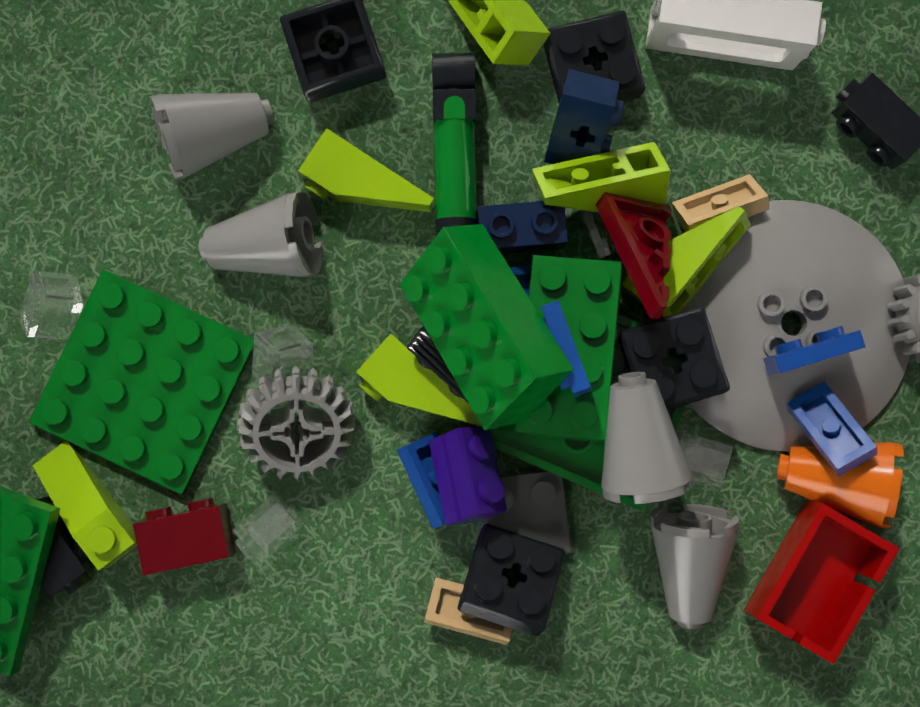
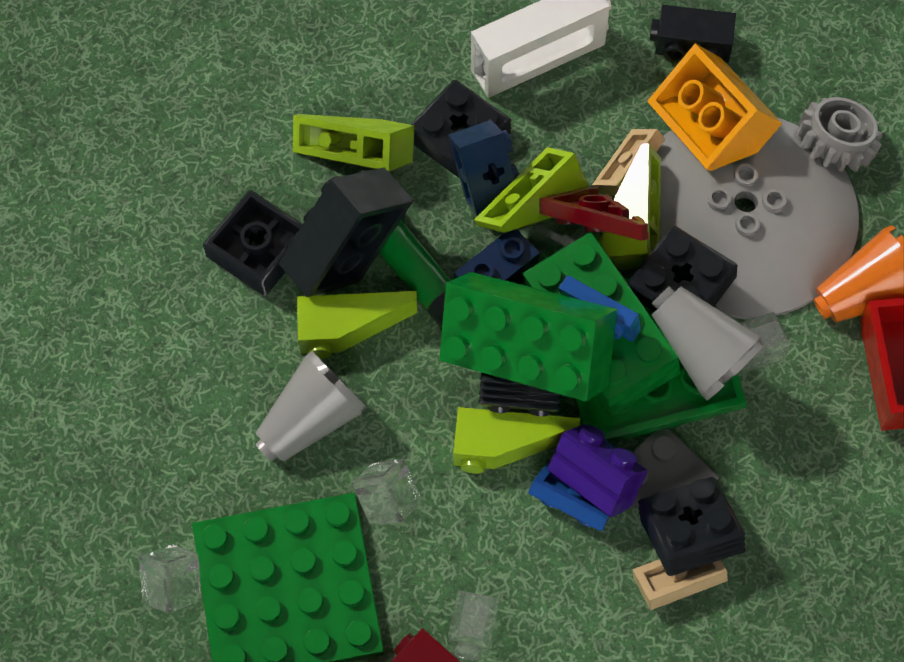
camera: 30 degrees left, 20 degrees down
(207, 126) = (199, 361): light grey cone -> none
(262, 428) = (456, 549): light grey gear -> none
(405, 98) = (345, 231): none -> black brick
(693, 559) = (814, 416): light grey cone -> none
(829, 345) = (782, 192): blue plate -> none
(832, 429) = (831, 247): blue plate -> none
(835, 214) = (713, 110): none -> light orange slope

